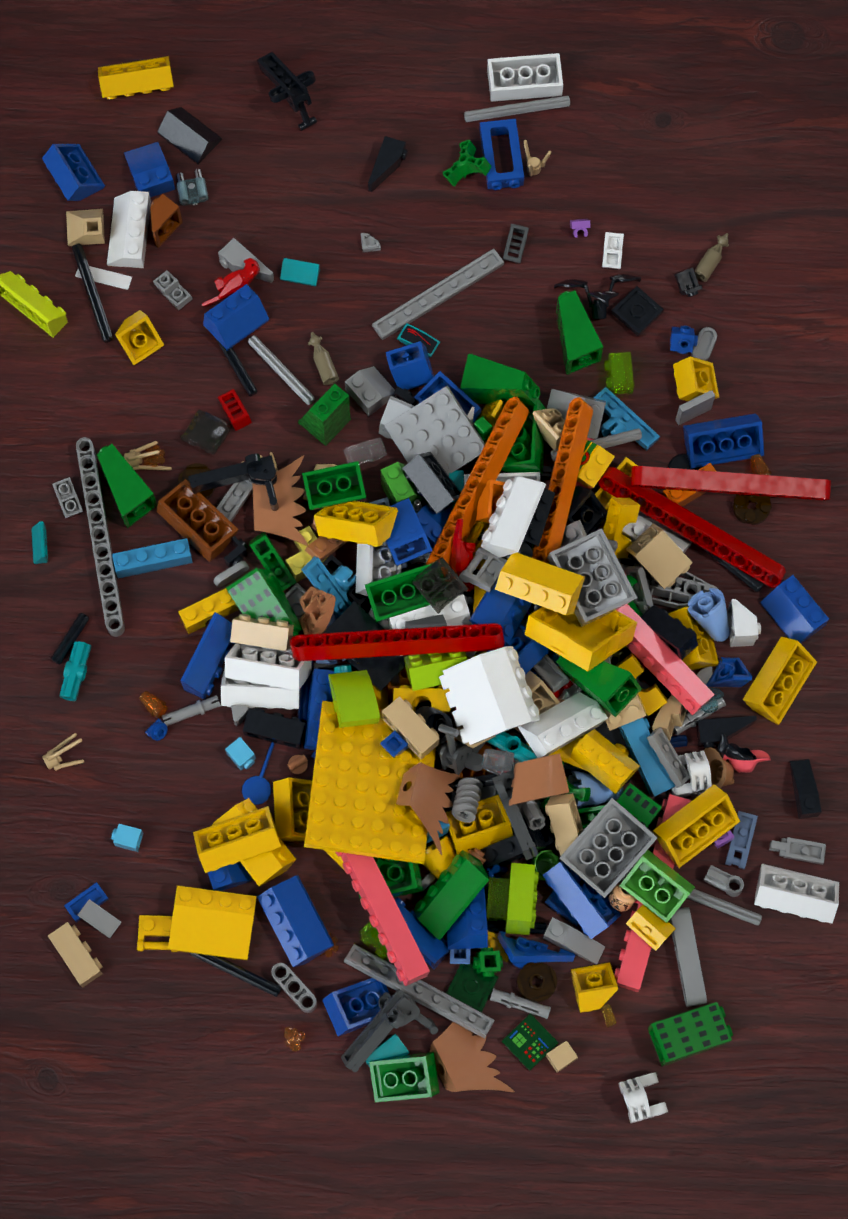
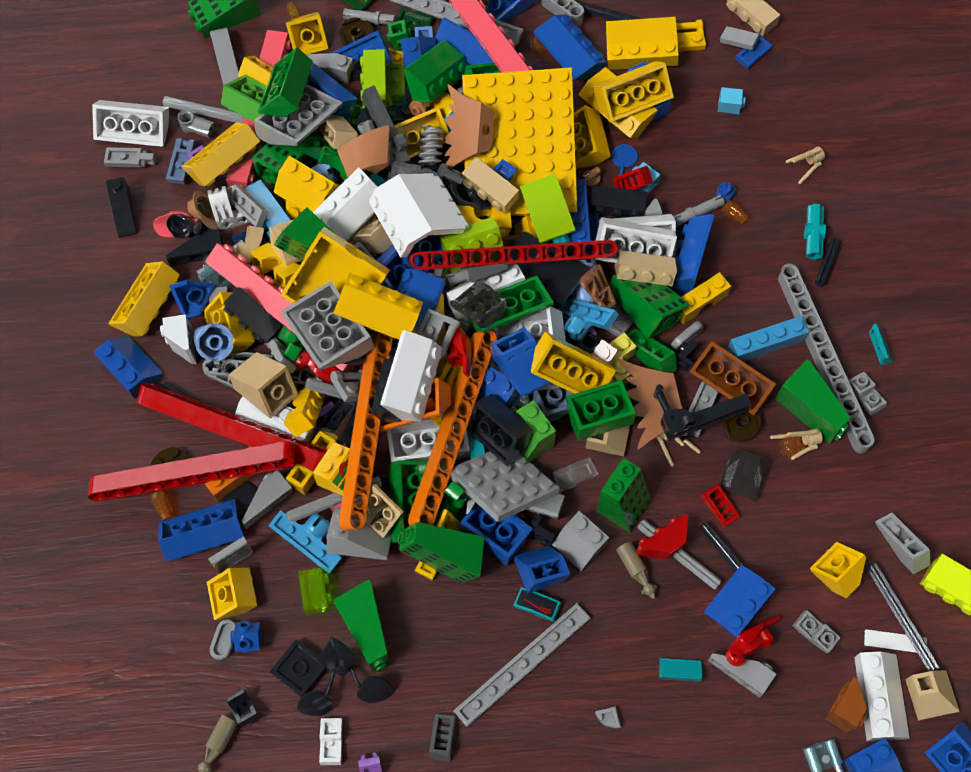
camera: 175 degrees right, 5 degrees down
(74, 354) = (904, 543): none -> light grey slope
(254, 744) = (643, 177): none -> red slope
(292, 374) = (666, 540): none -> red slope
(621, 882) = (286, 84): none -> green slope
(665, 455) = (269, 494): none -> light grey slope

